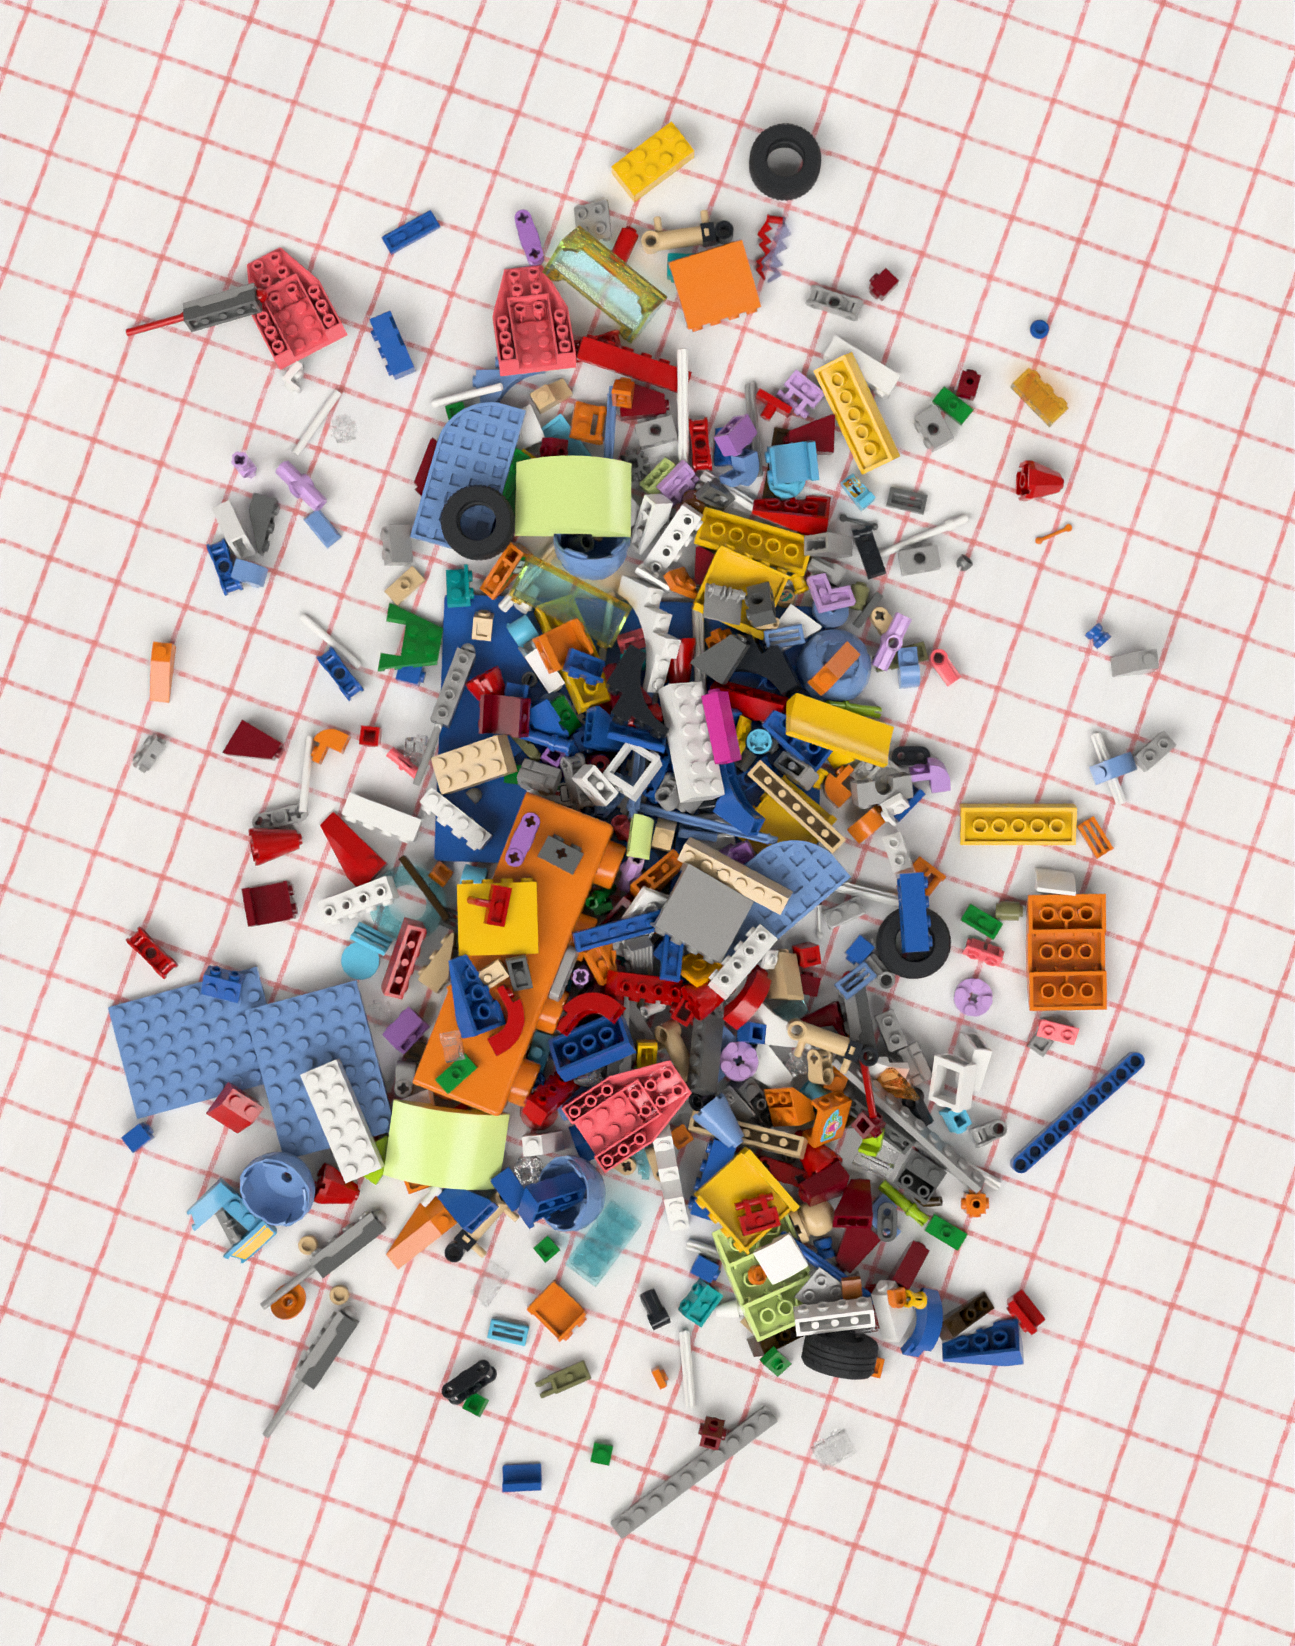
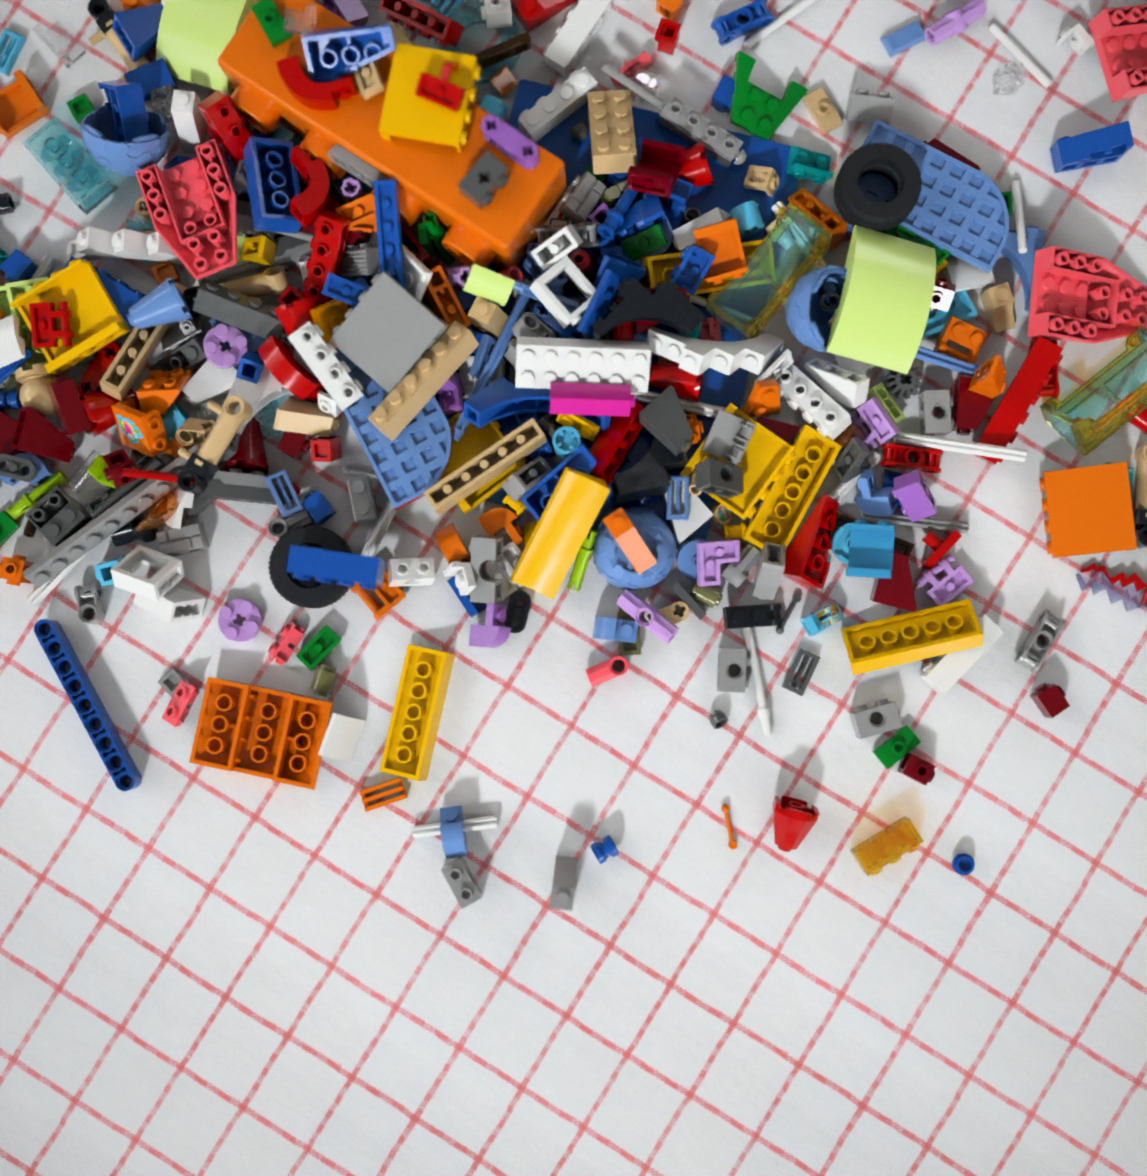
camera: 100 degrees right, 0 degrees up
(519, 972) = (364, 107): dark grey slope -> none
(890, 1030) = (223, 521): light grey brick -> none

